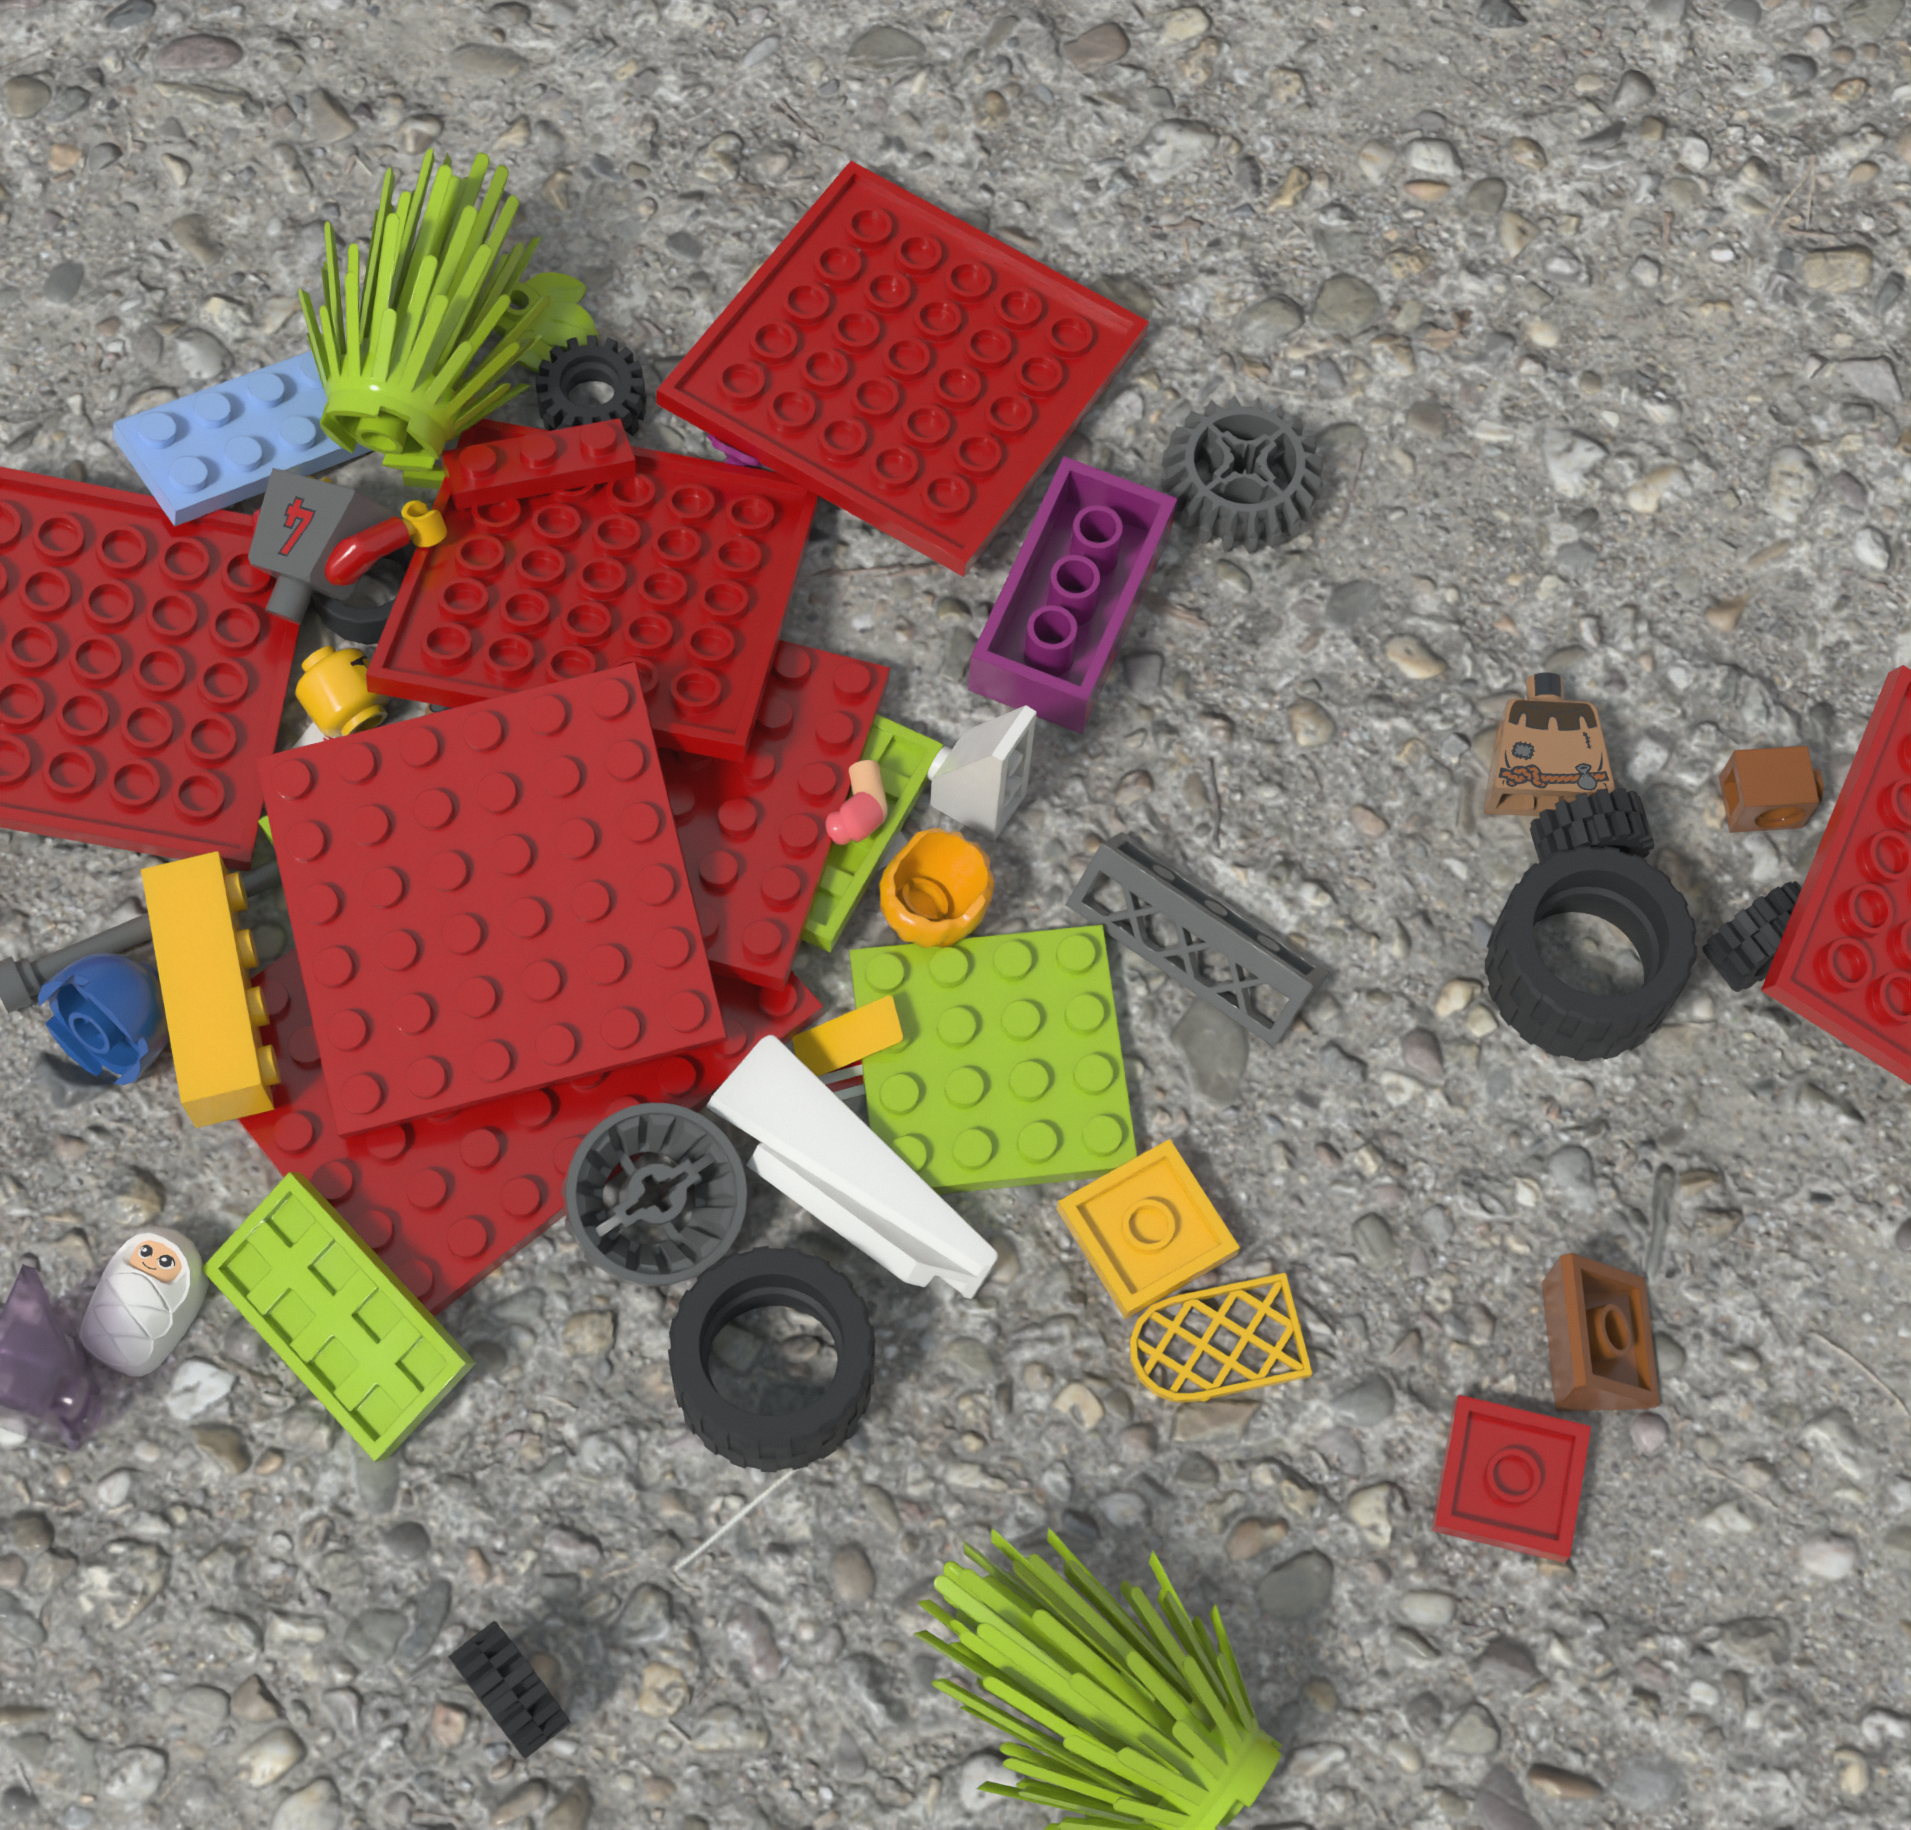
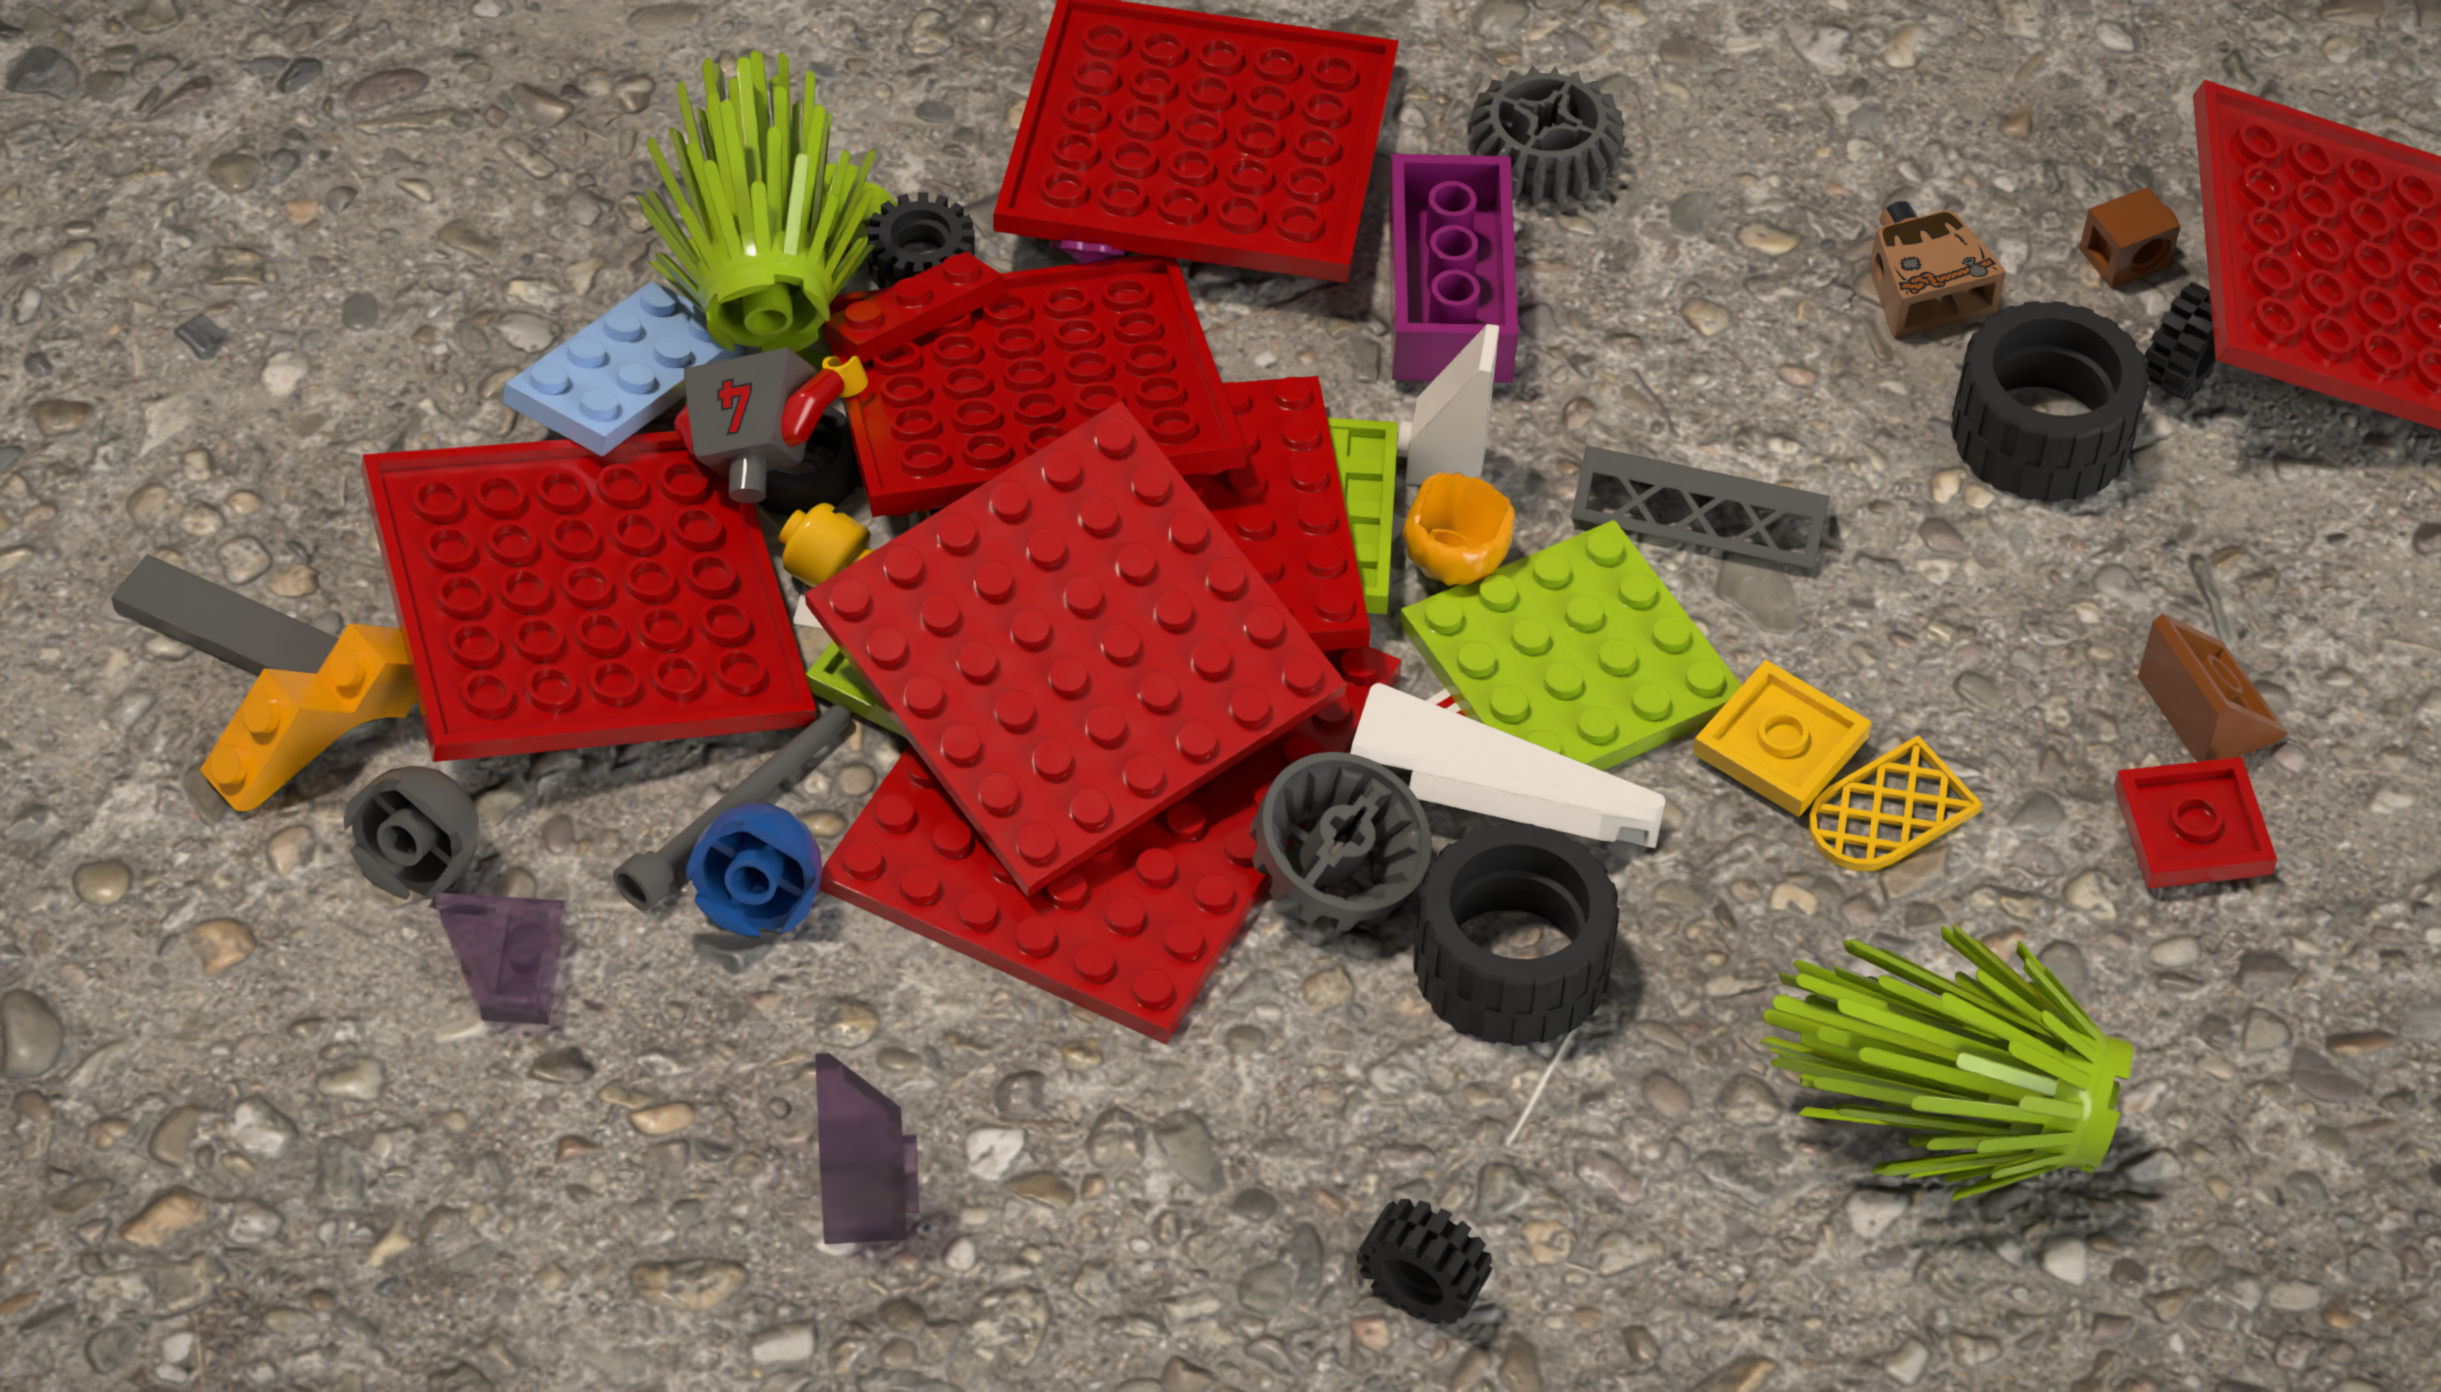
camera: 20 degrees left, 15 degrees down
(144, 1301) = (918, 1071): white piece -> none
(208, 989) = (855, 817): yellow brick -> none
(338, 1316) = (1102, 1034): lime plate -> none
(849, 1037) = (1447, 667): yellow sticker -> none
(864, 810) = (1362, 482): coral arm -> none
(1595, 821) = (2006, 285): black tyre -> none

